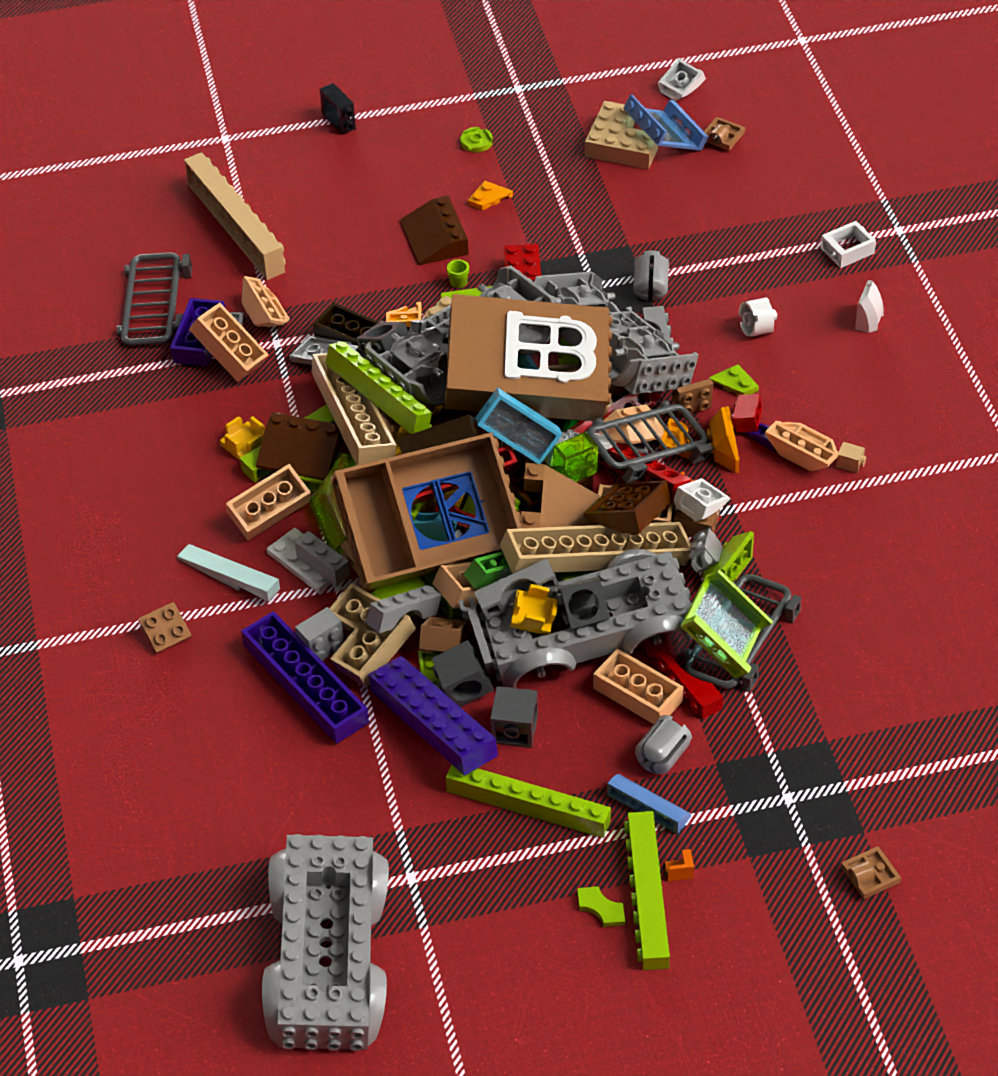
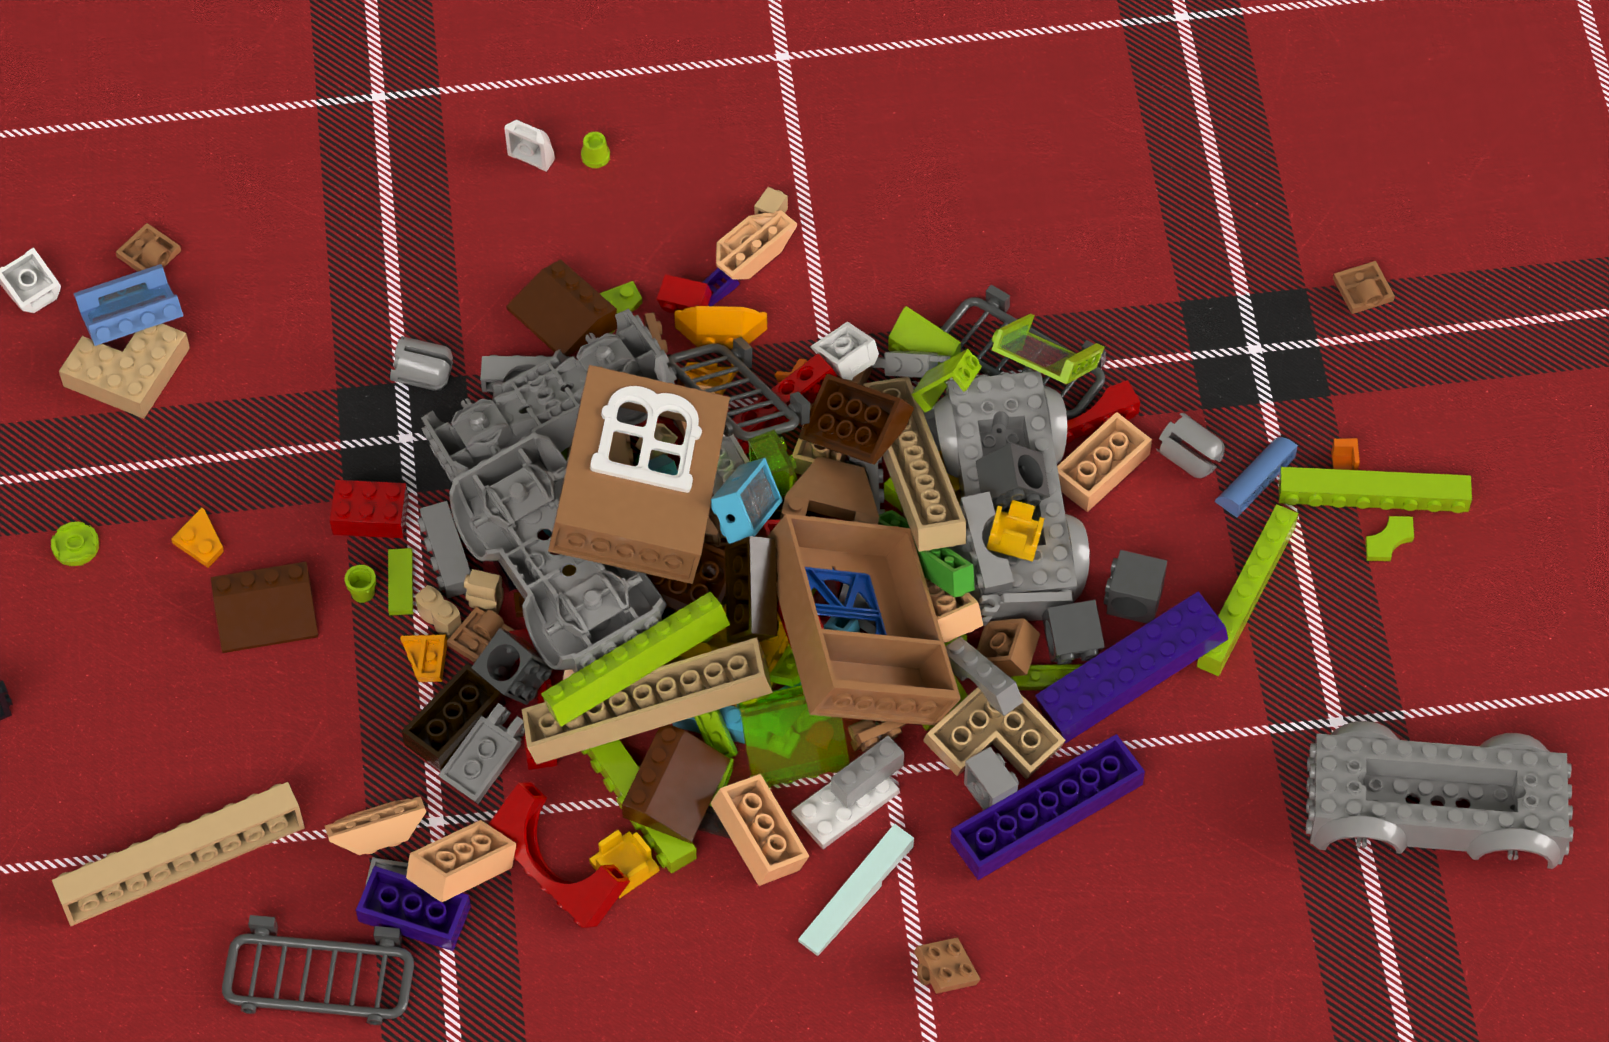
camera: 85 degrees left, 10 degrees up
(215, 415) = (584, 900): none -> red arch
(675, 554) = (960, 367): none -> lime panel
(718, 345) = (563, 309): none -> reddish brown slope
(757, 317) = (521, 259): white brick -> none
(843, 257) = (417, 162): white window -> none
(878, 349) = (595, 150): none -> lime piece

